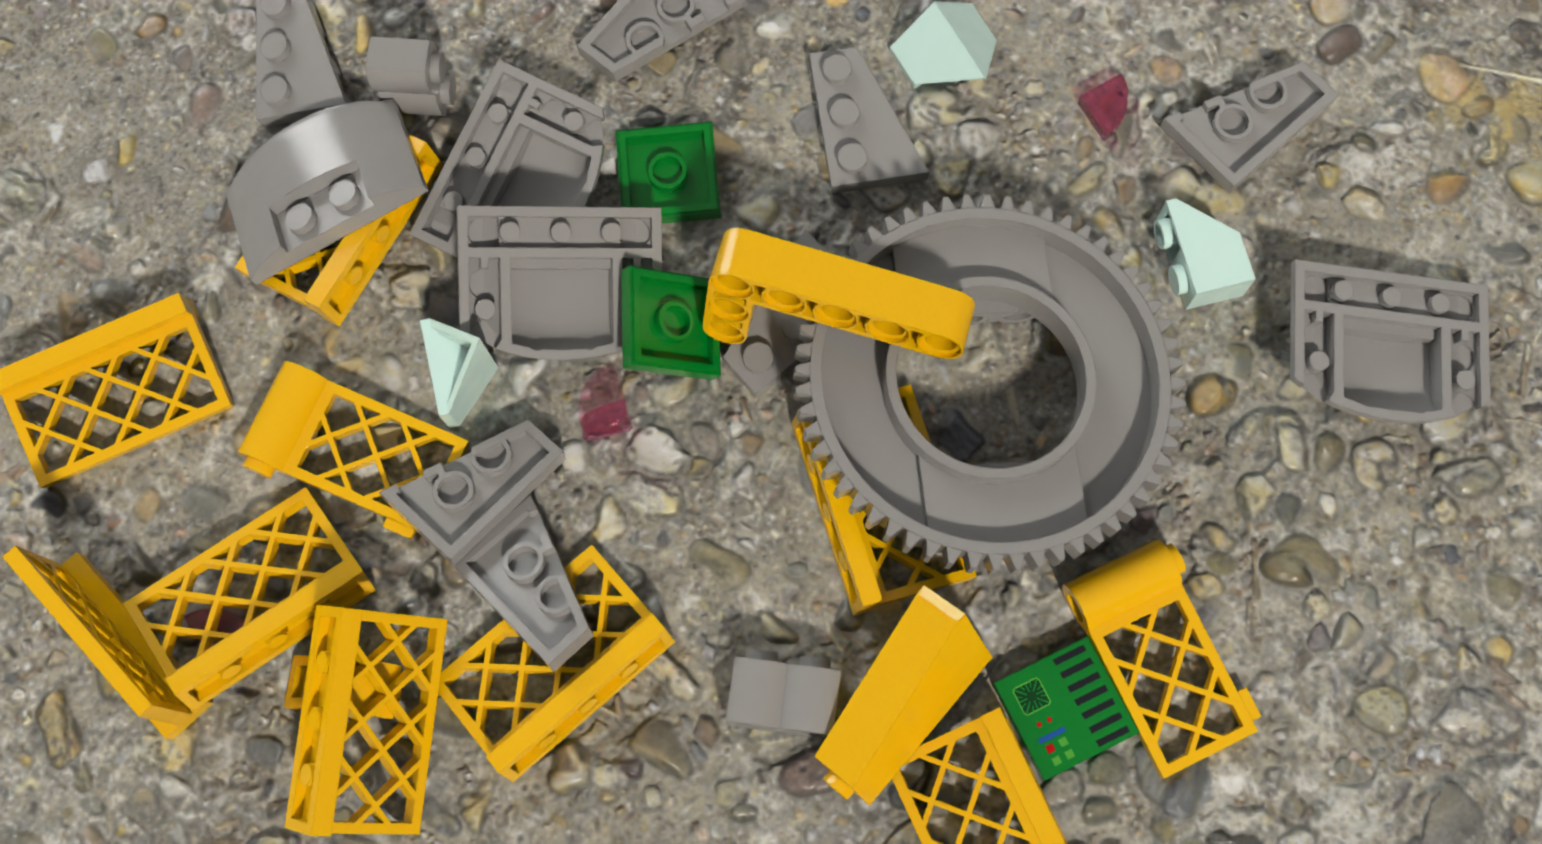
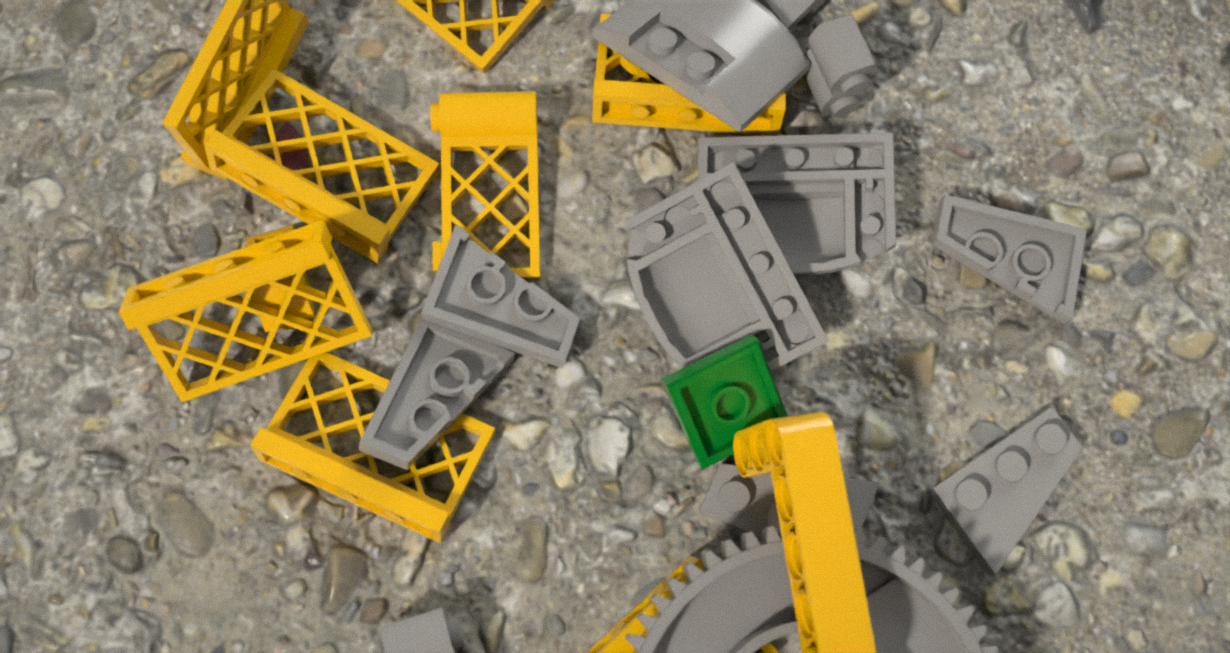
camera: 55 degrees right, 0 degrees up
(458, 369) = (594, 236): light aqua slope -> none
(606, 421) = (612, 388): clear pink tile -> none
(670, 171) = (871, 333): green tile -> none
(945, 45) = (1130, 534): light aqua slope -> none

